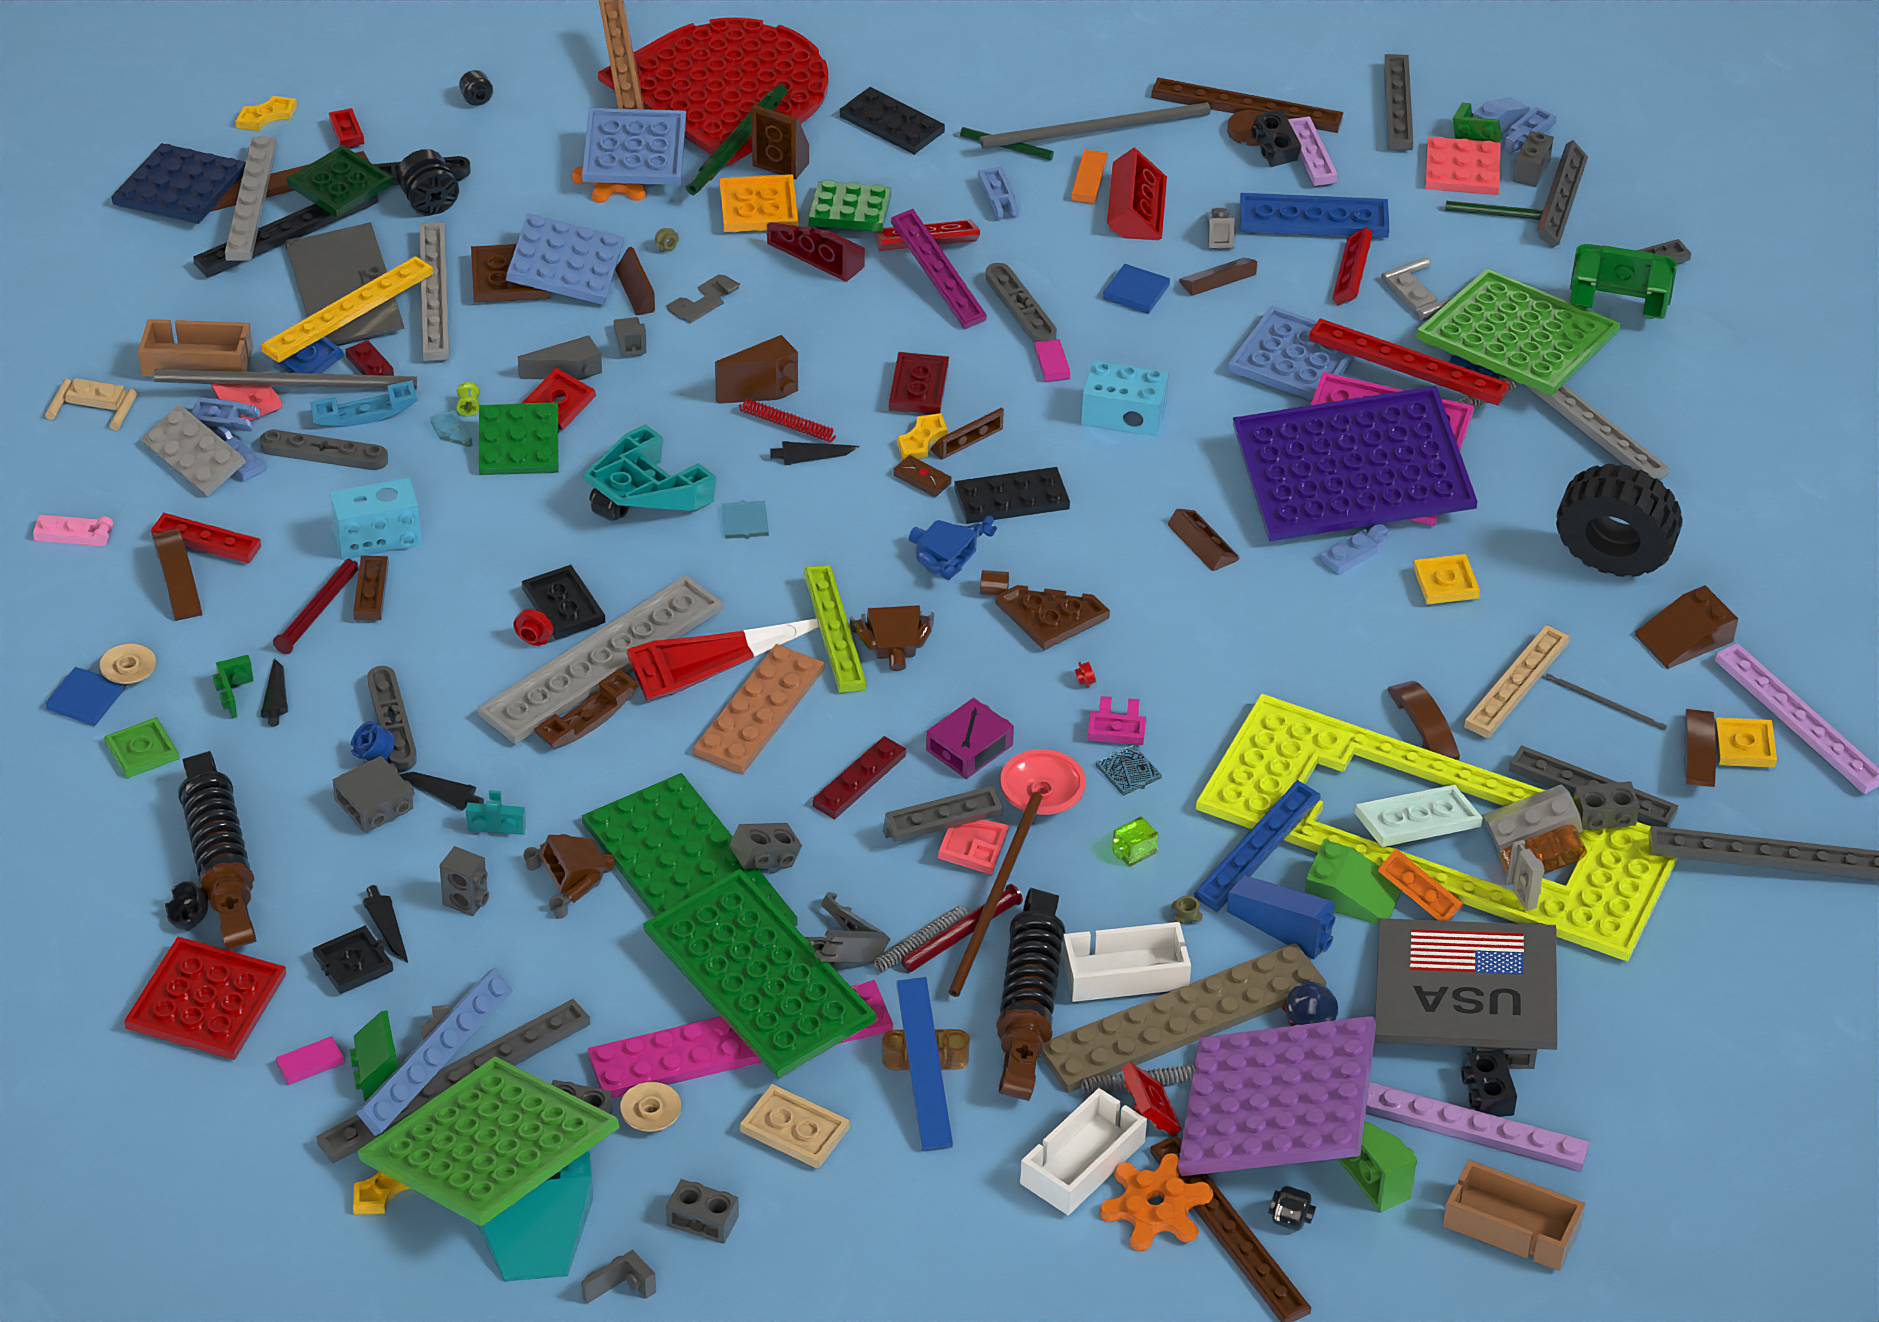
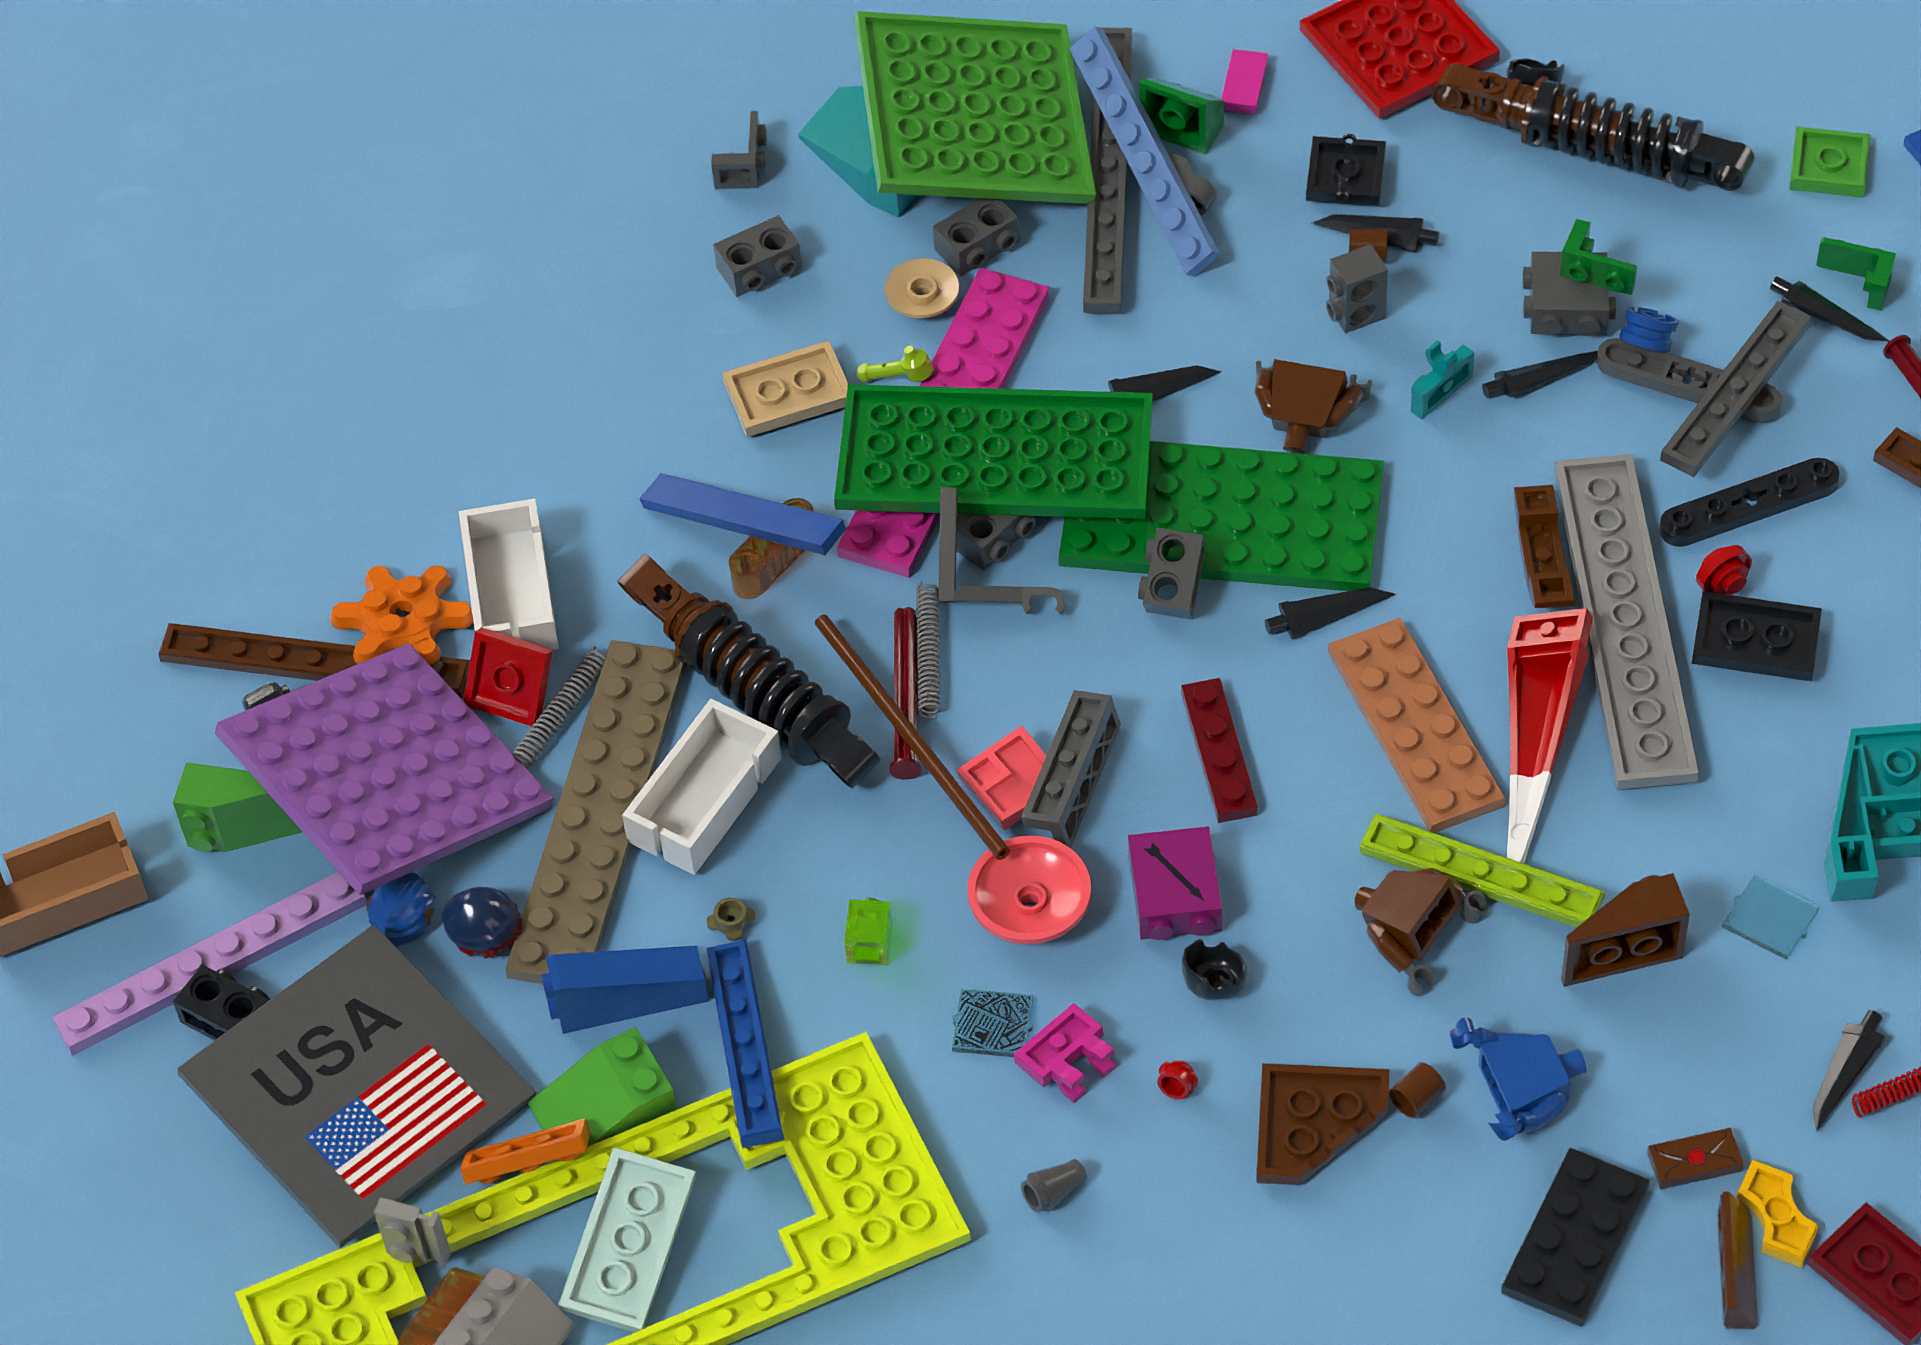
camera: 135 degrees right, 10 degrees up
(355, 778) = (1584, 266): none -> green bracket
(390, 678) = (1735, 389): none -> dark grey plate
(411, 912) = (1361, 237): none -> reddish brown beam
(446, 647) = (1725, 511): none -> black piece
(632, 962) = (1162, 382): none -> black bar
(720, 1065) = (913, 364): none -> lime piece
(729, 793) = (1311, 613): none -> black bar
(821, 539) = (1630, 932): none -> reddish brown slope
(1009, 690) = (1213, 971): none -> black hair
(1199, 684) = (1051, 1185): none -> dark grey cone

